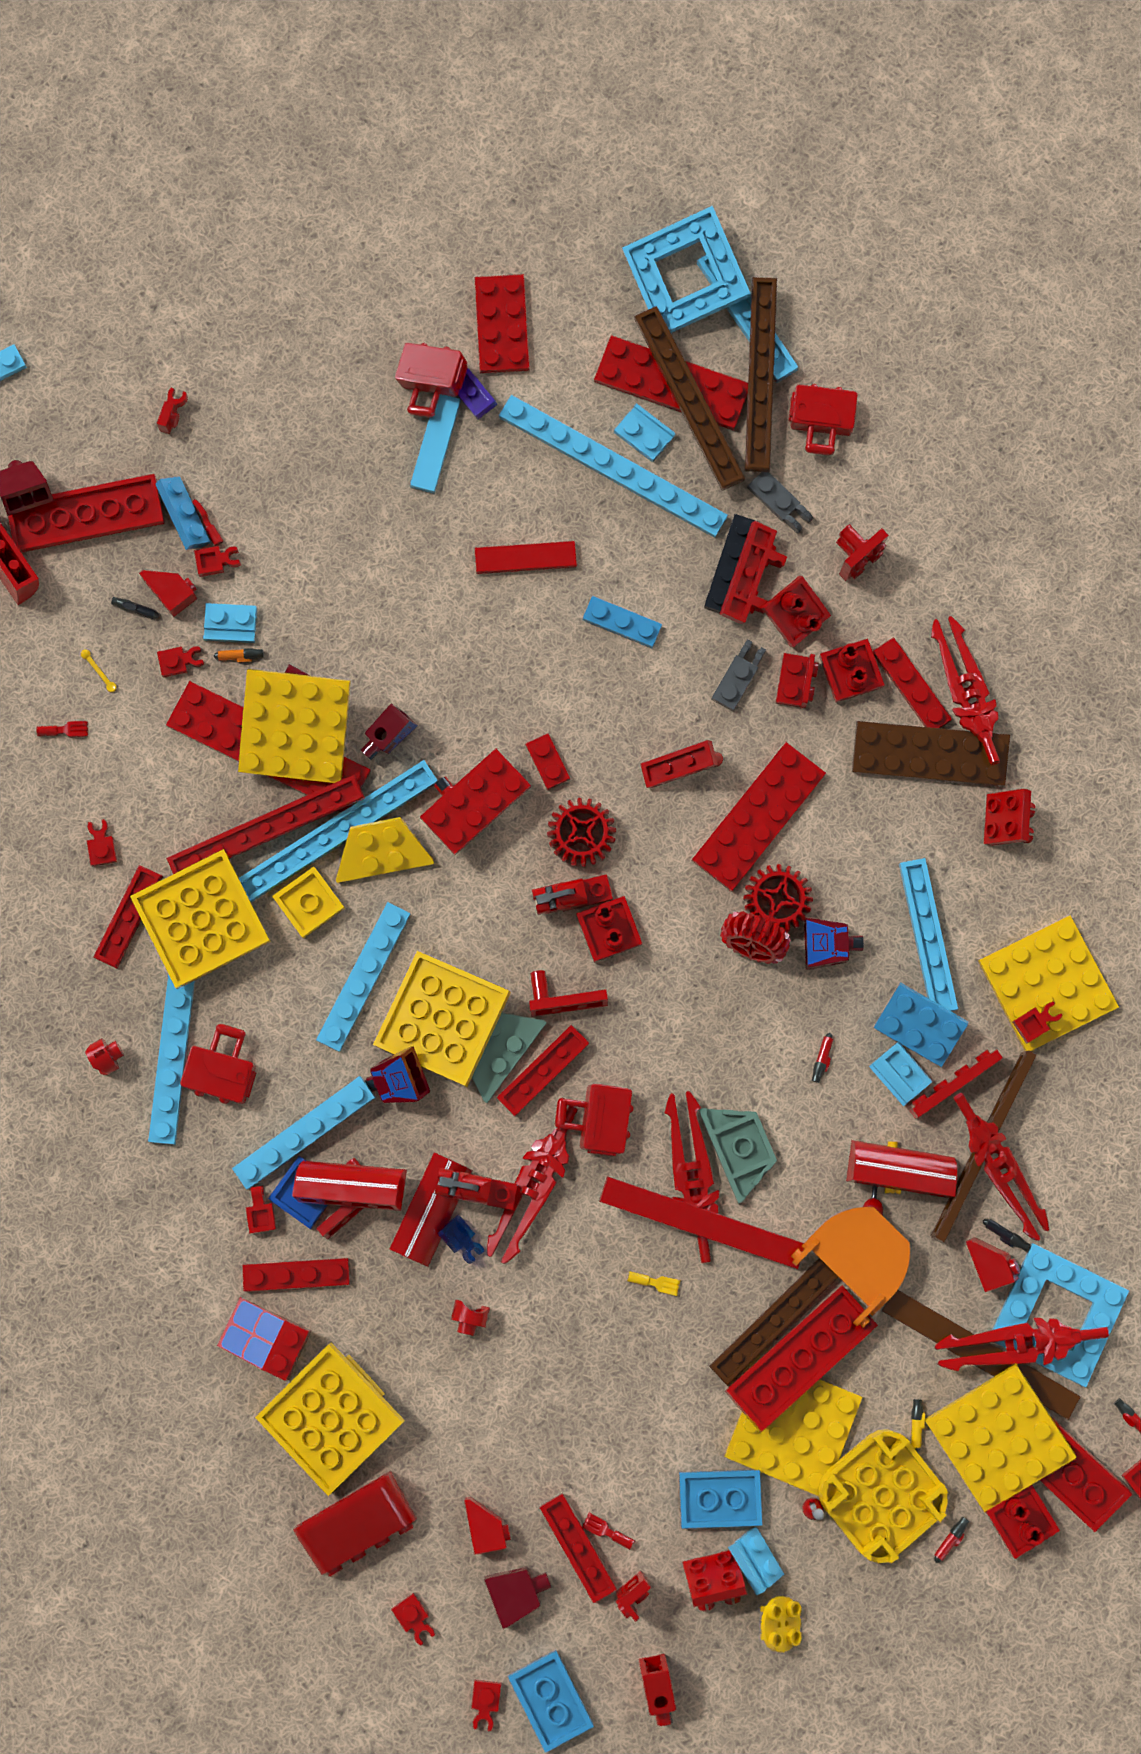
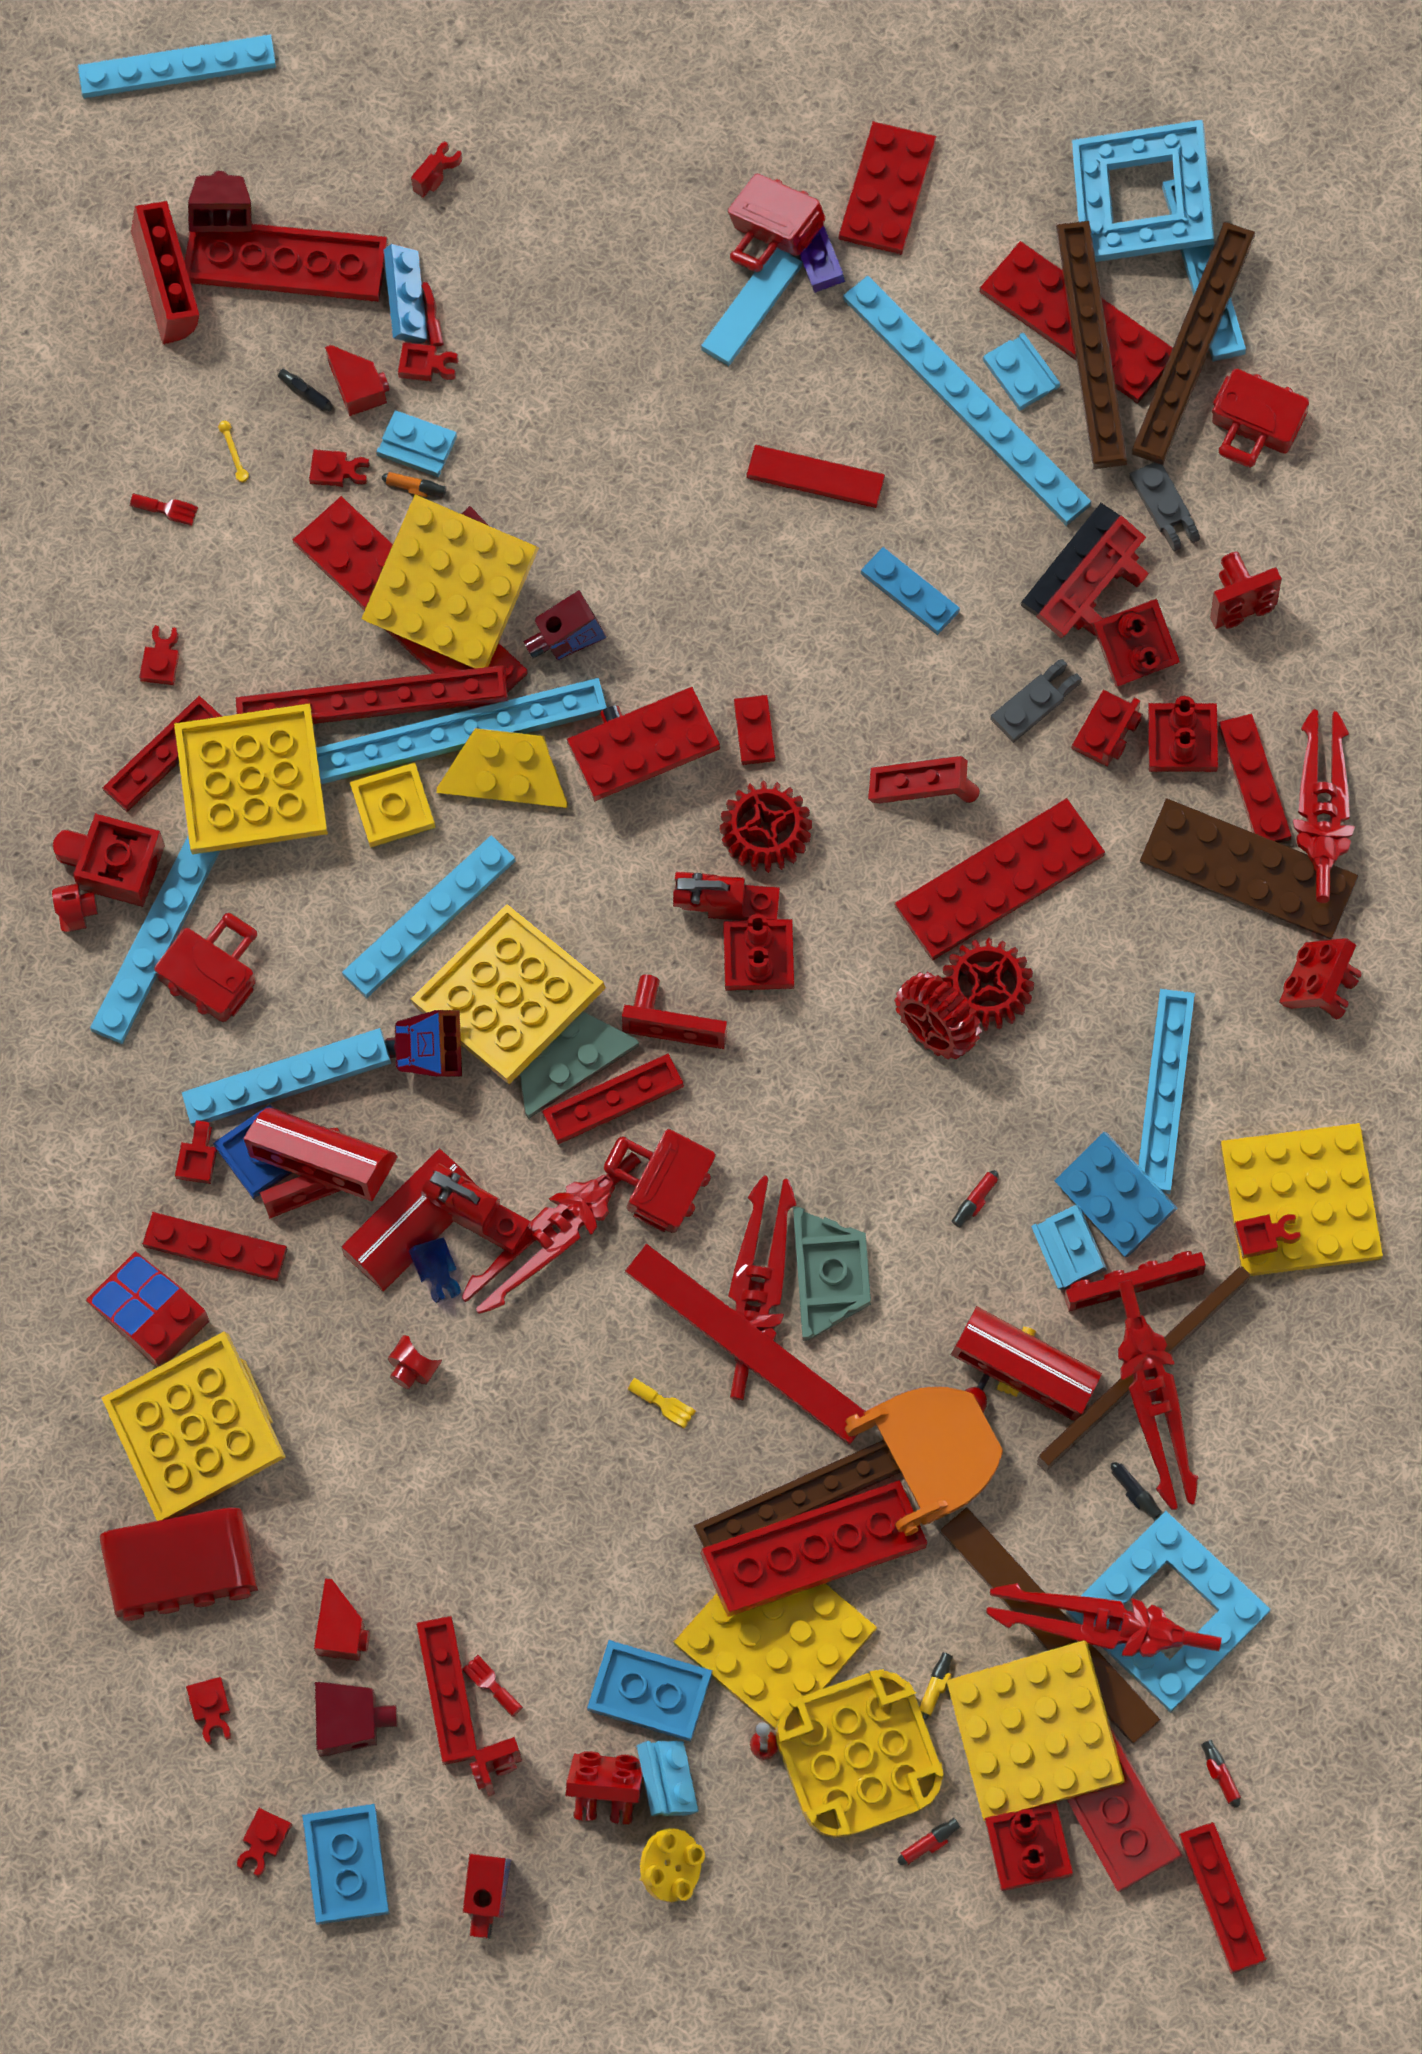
camera: 25 degrees right, 10 degrees down
(119, 1012) = (113, 858): none -> red brick
(828, 943) = (1032, 1058): torso -> none
(992, 1264) = (1101, 1519): red slope -> none

